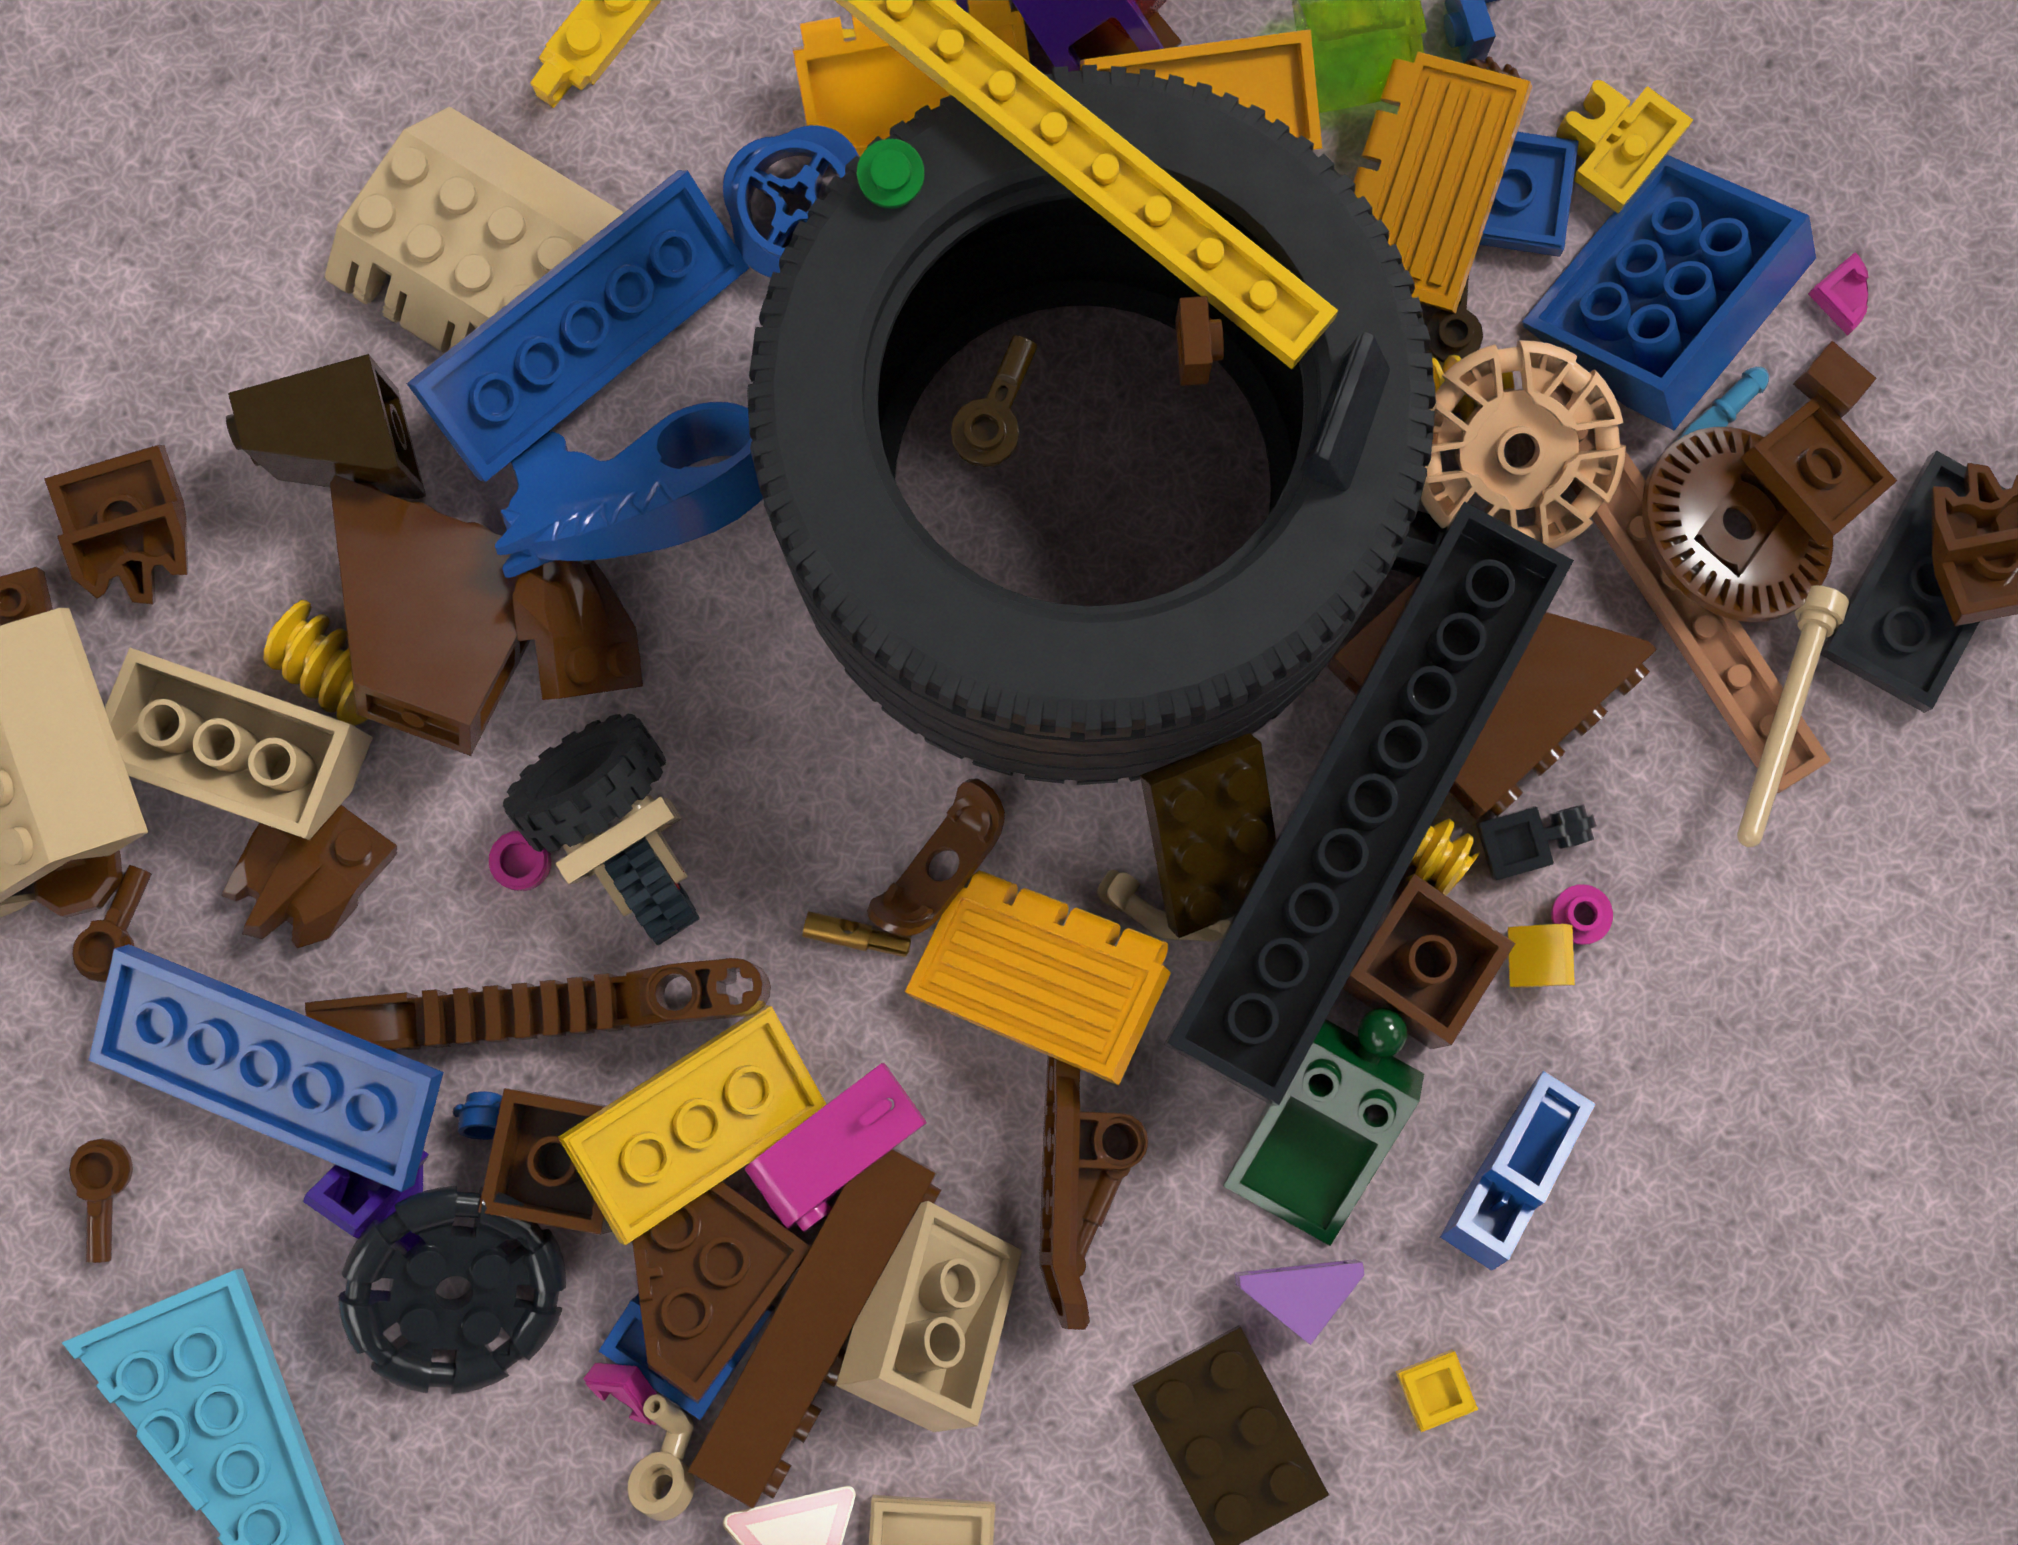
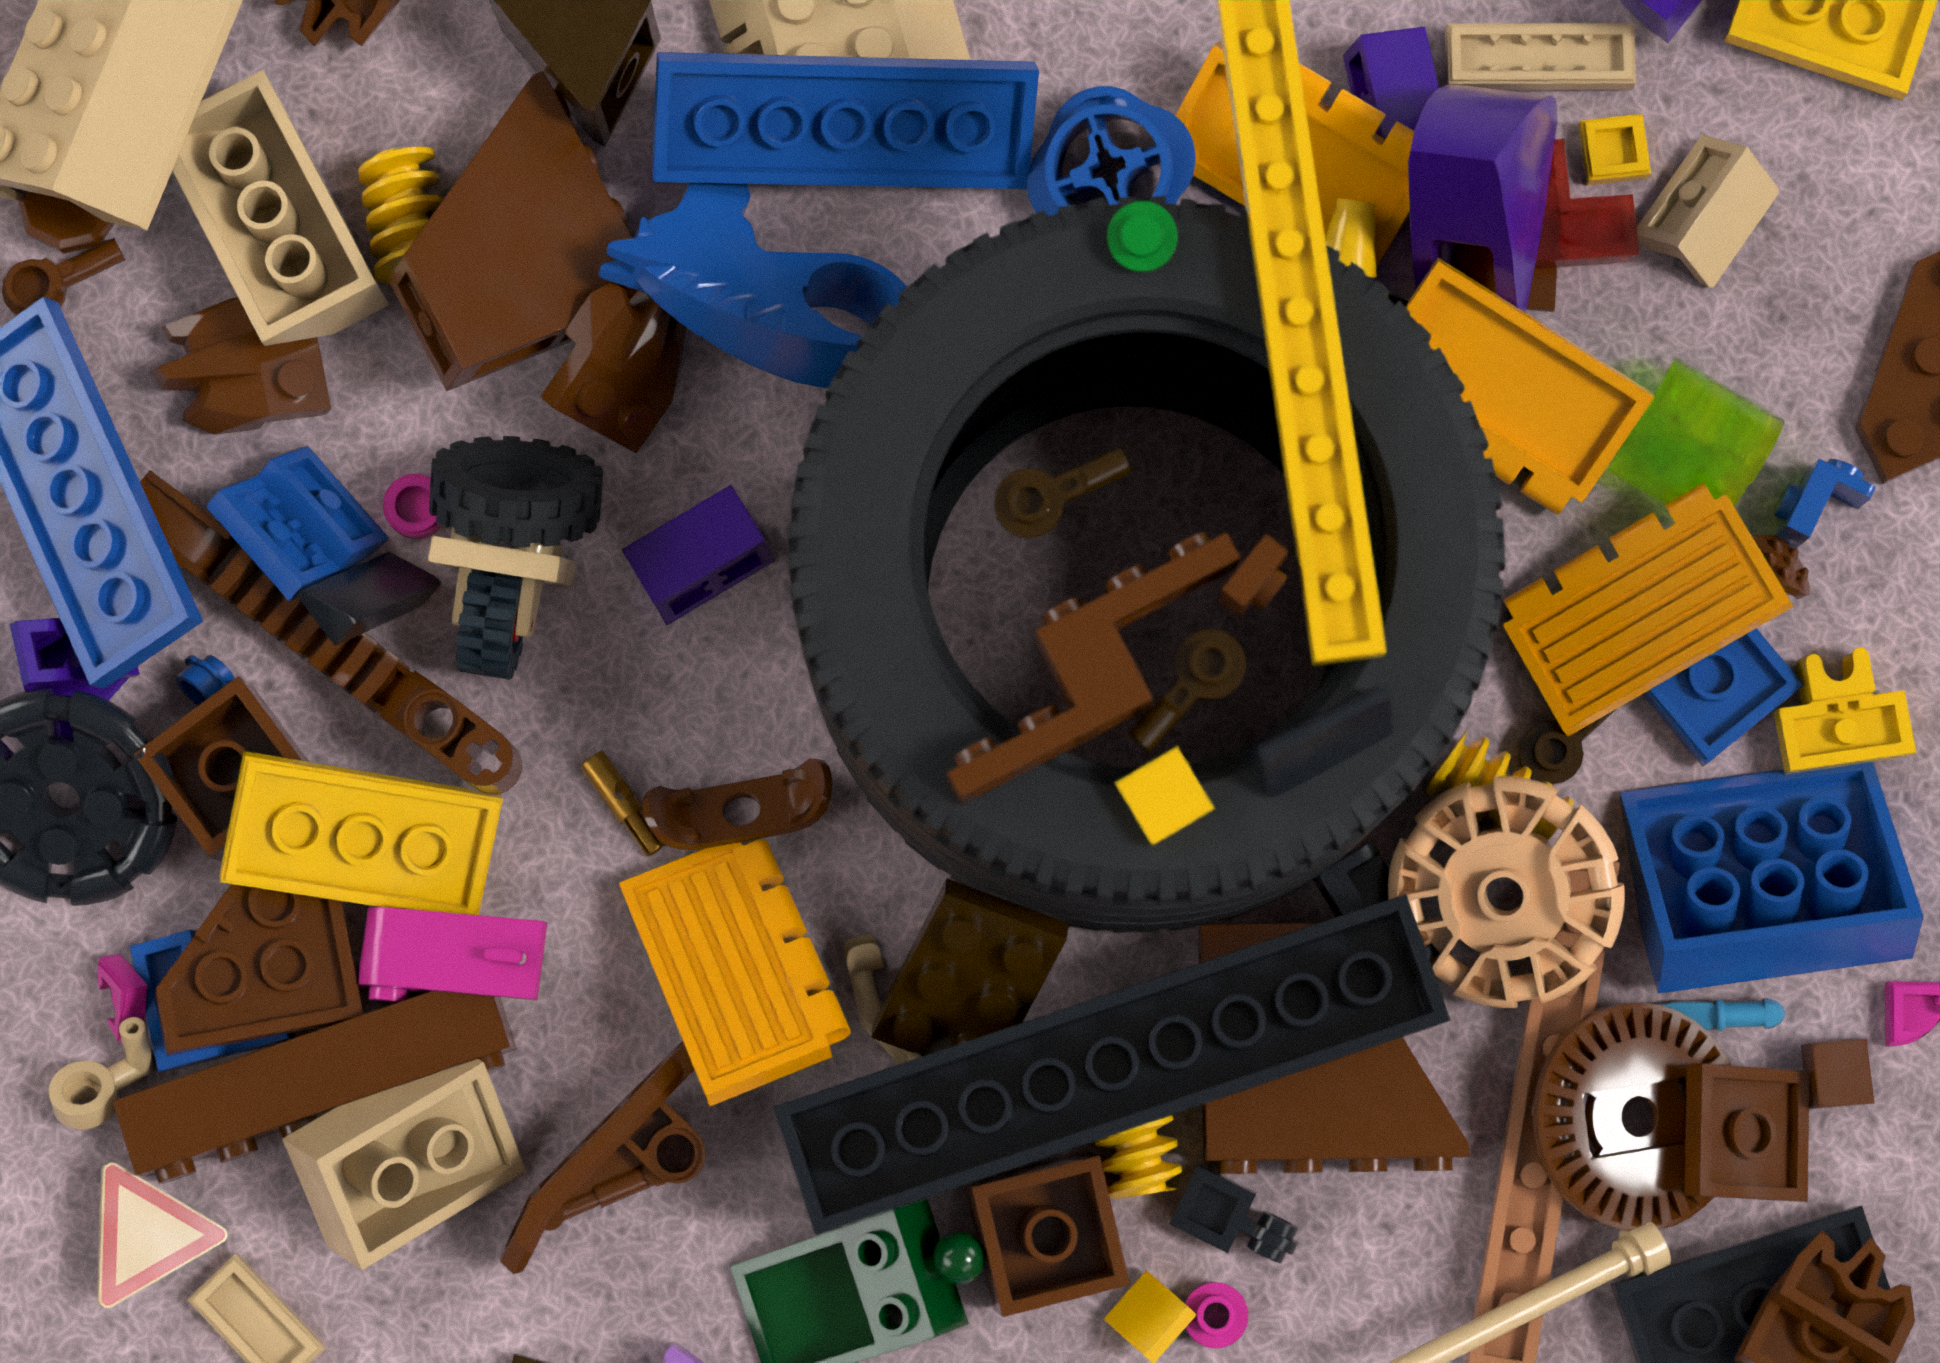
camera: 40 degrees right, 0 degrees up
(446, 945) = (297, 522): none -> blue slope
(544, 951) = (367, 596): none -> black slope
(752, 715) = (698, 555): none -> dark purple hinge
(1138, 505) = (1092, 665): none -> reddish brown bracket
(1220, 436) = (1206, 668): none -> dark brown plate
(1274, 554) = (1164, 796): none -> yellow tile

